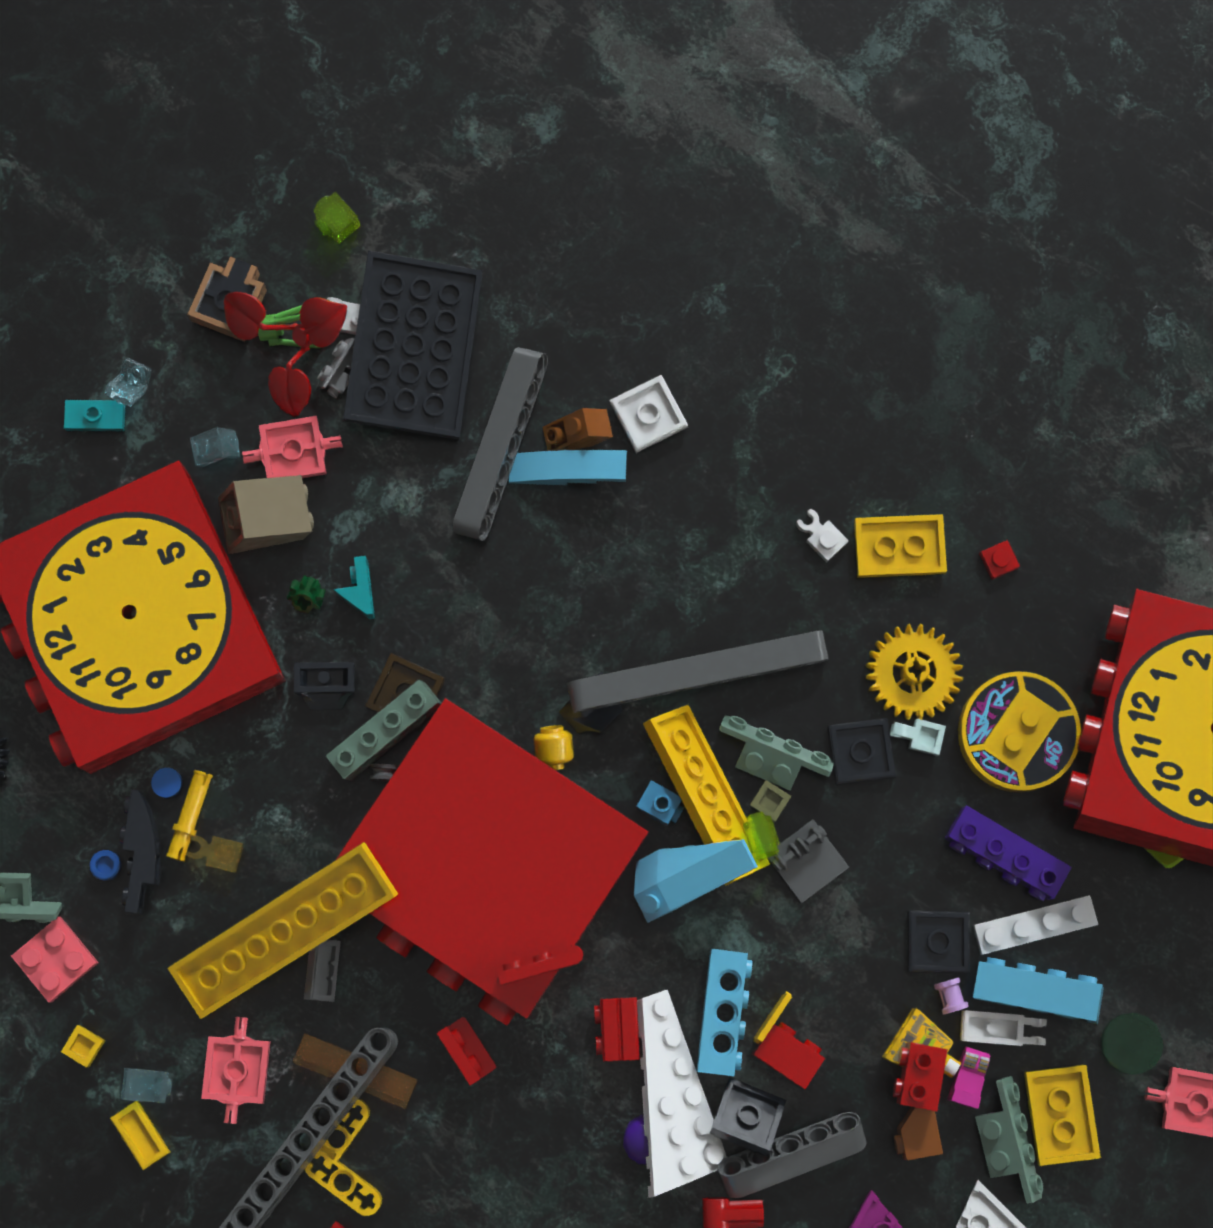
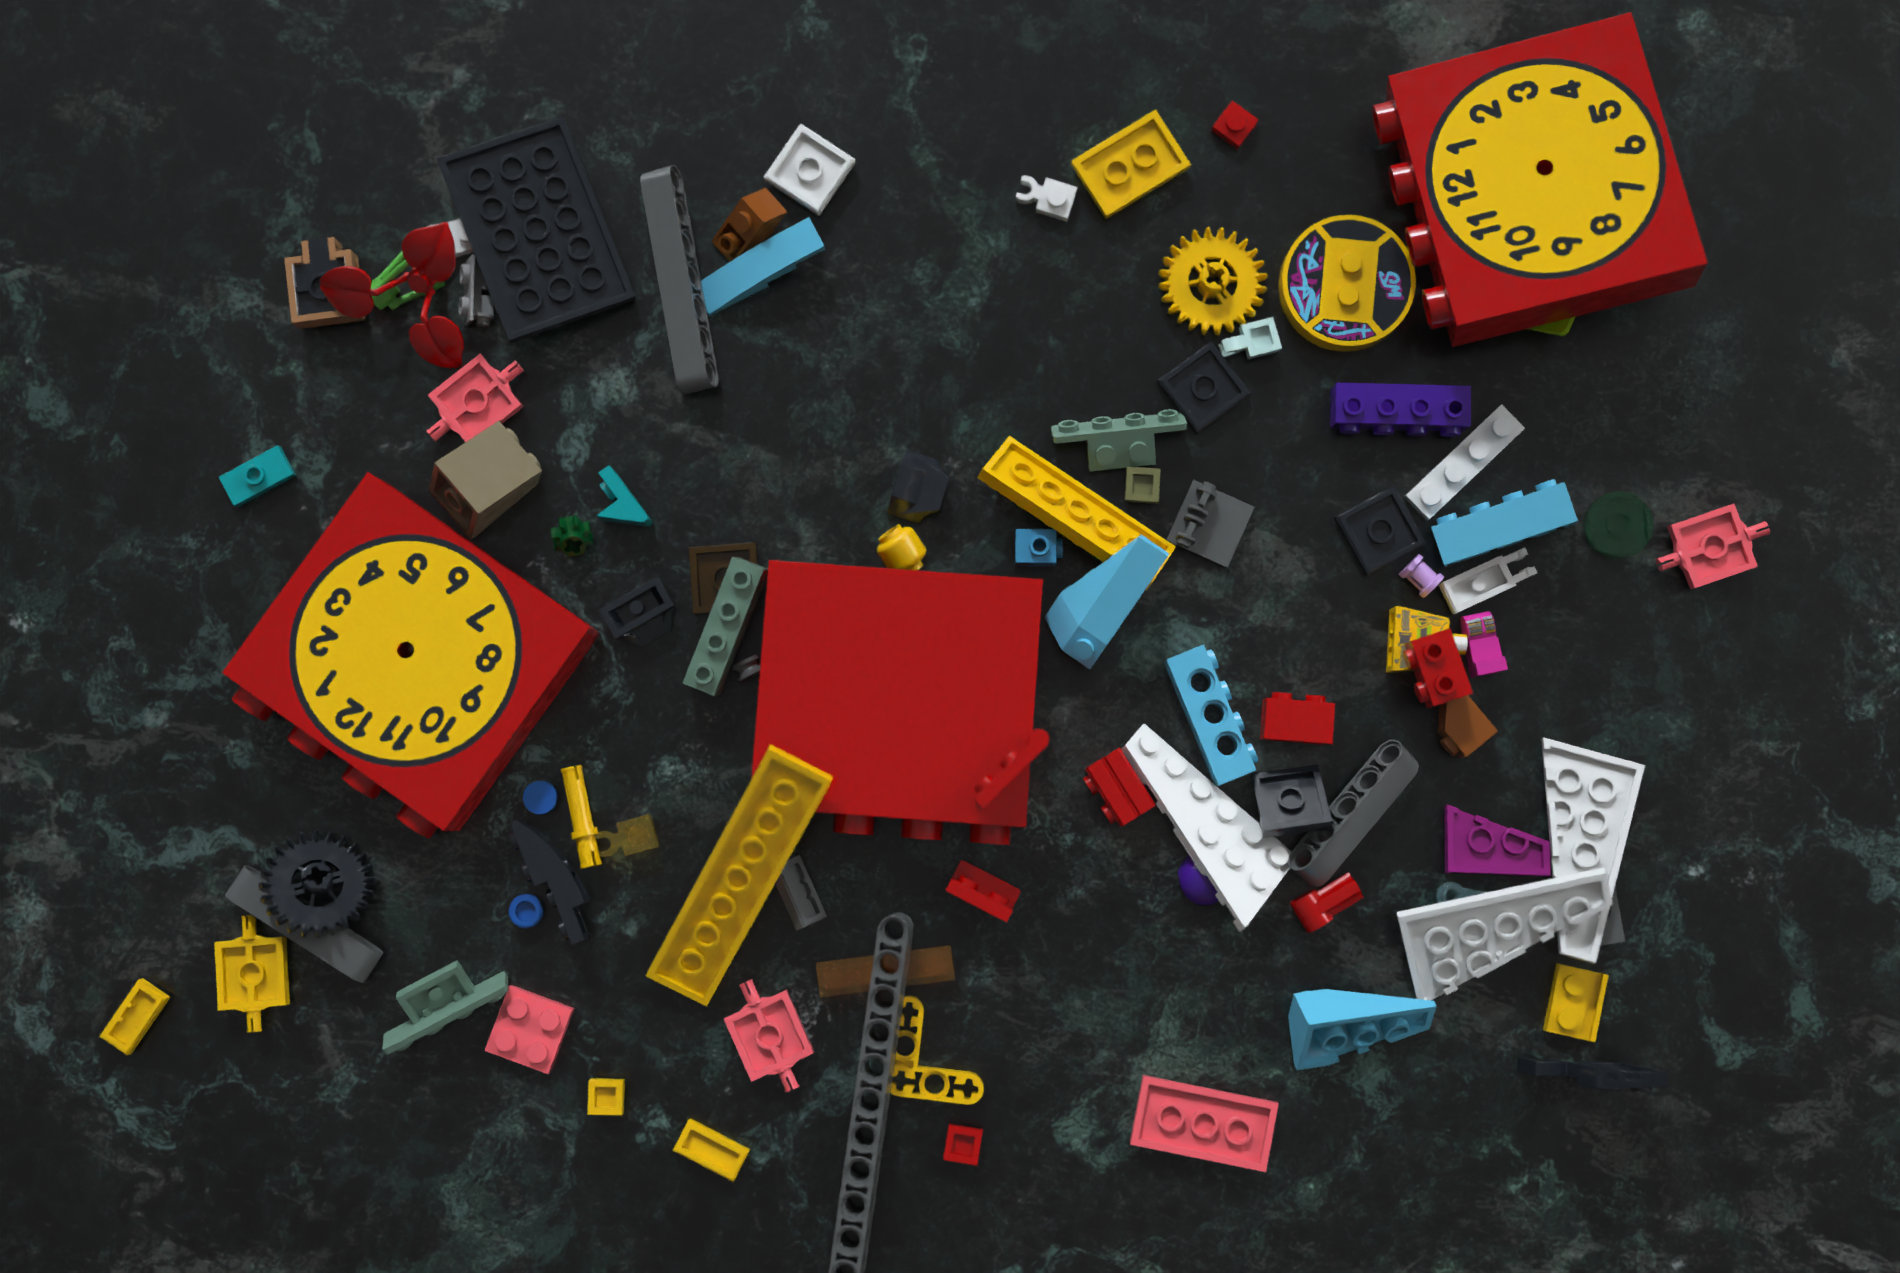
camera: 20 degrees left, 5 degrees up
(130, 383) = (274, 424): clear light blue bracket -> none
(145, 1085) = (689, 1099): clear light blue bracket -> none
(214, 446) = (395, 440): clear light blue bracket -> none
(335, 217) = (385, 144): clear neon green brick -> none
(697, 671) = (1001, 397): dark grey beam -> none
(761, 835) = (1153, 522): clear neon green brick -> none
(772, 1017) = (1262, 693): yellow piece -> none
(1007, 1143) = (1551, 686): sand green bracket -> none
(1062, 1115) = (1589, 630): yellow plate -> none

